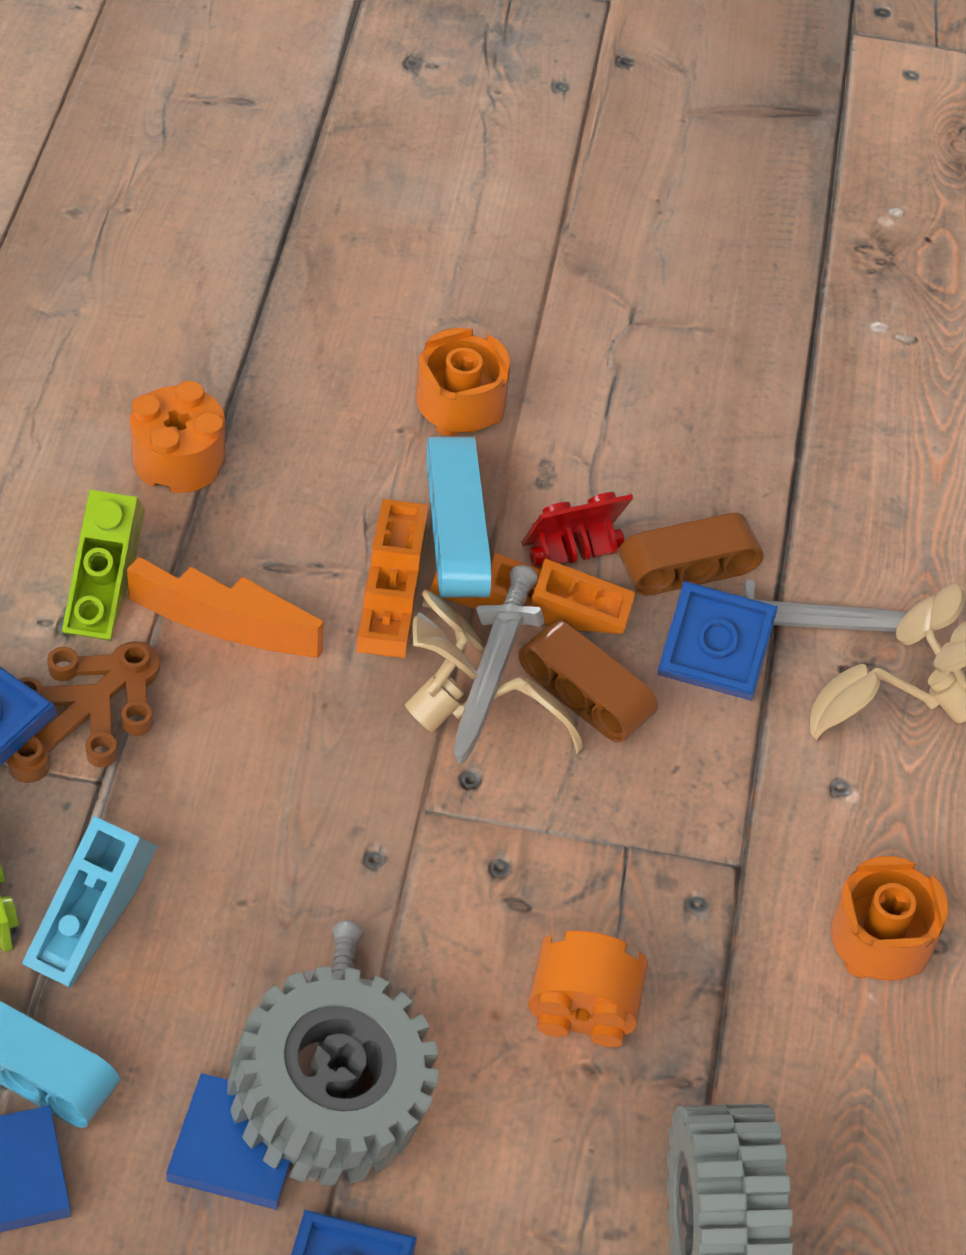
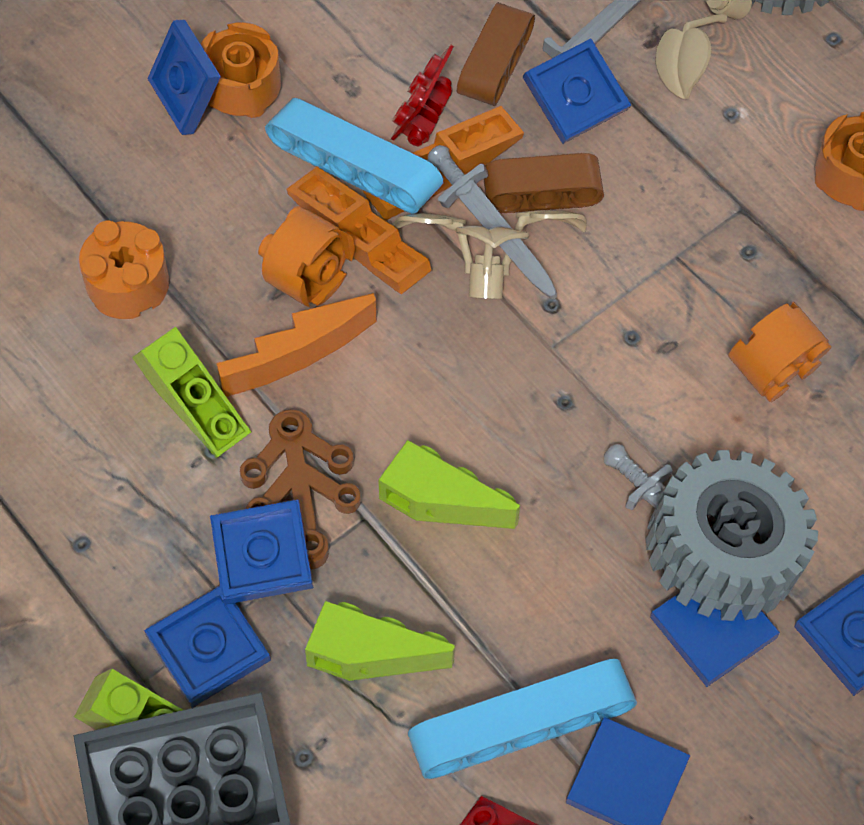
camera: 45 degrees left, 10 degrees up
(89, 900) = (467, 587): medium azure slope -> none
(169, 814) = (438, 492): none -> lime slope
(313, 550) = (306, 257): none -> orange brick
(408, 345) = (183, 77): none -> blue tile

